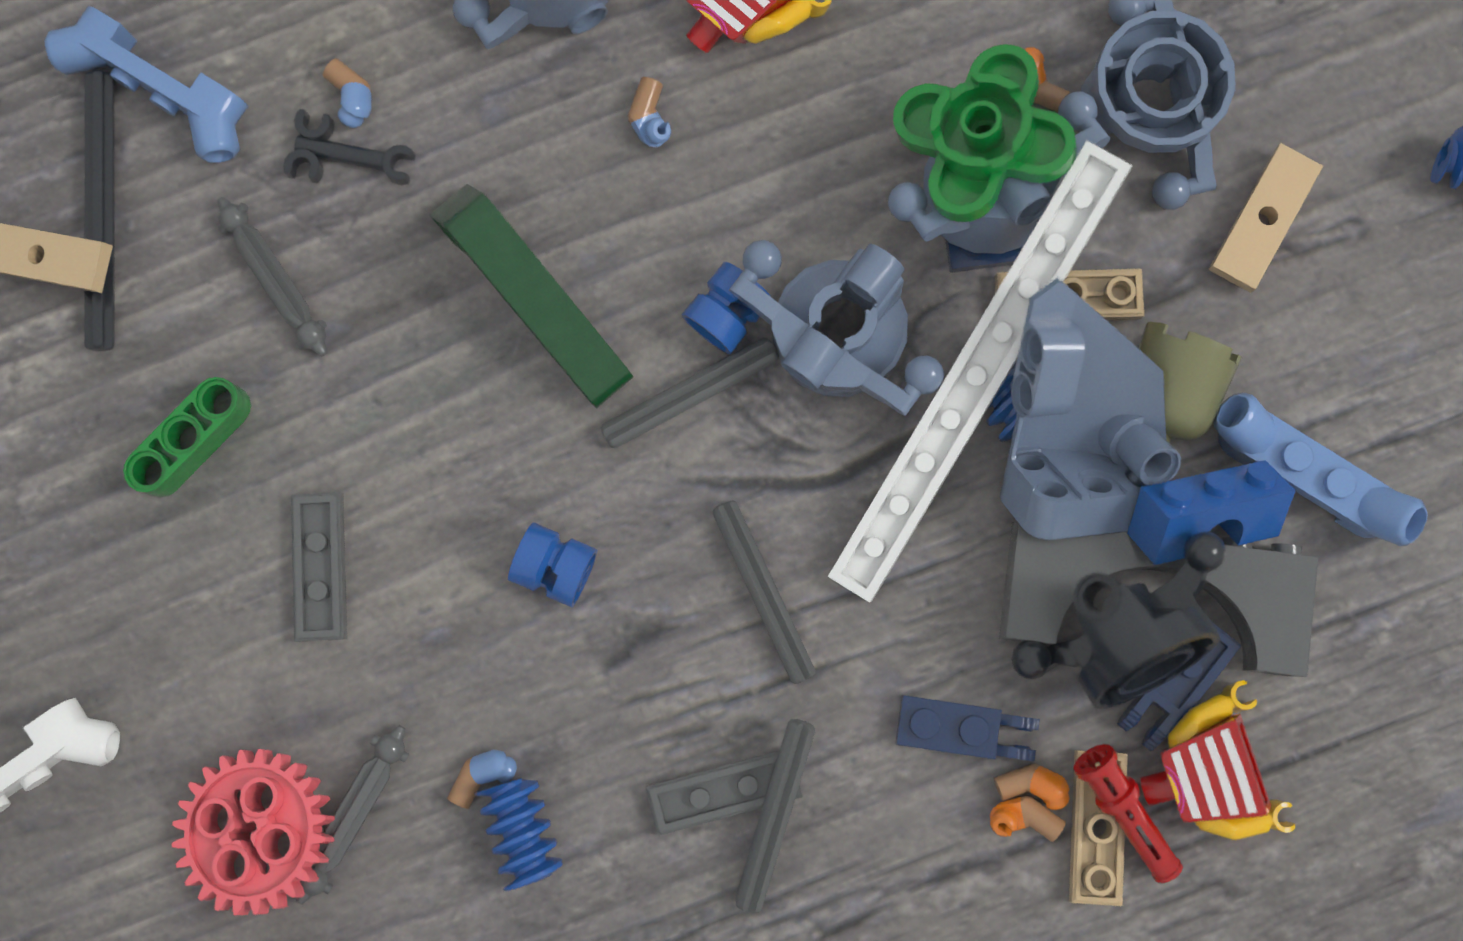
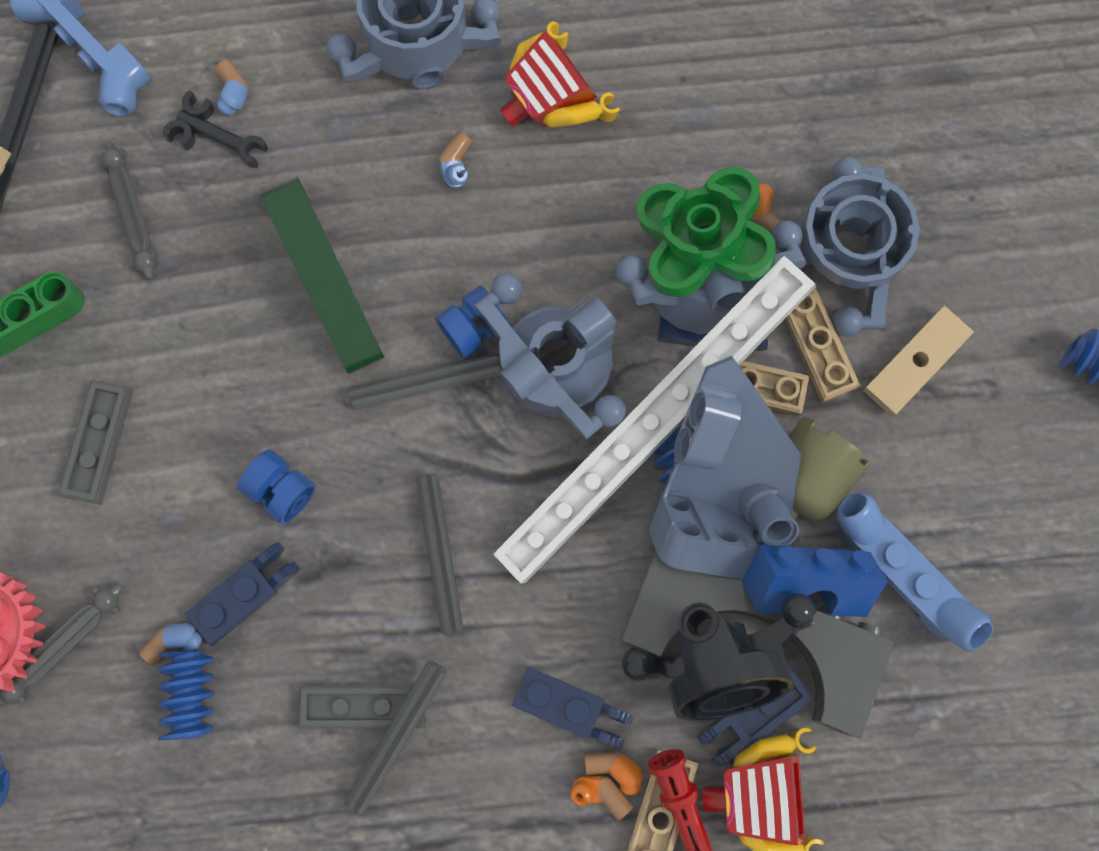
camera: 10 degrees right, 5 degrees down
(544, 703) = (239, 596): none -> dark blue hinge
(1159, 248) = (825, 363): none -> tan tile

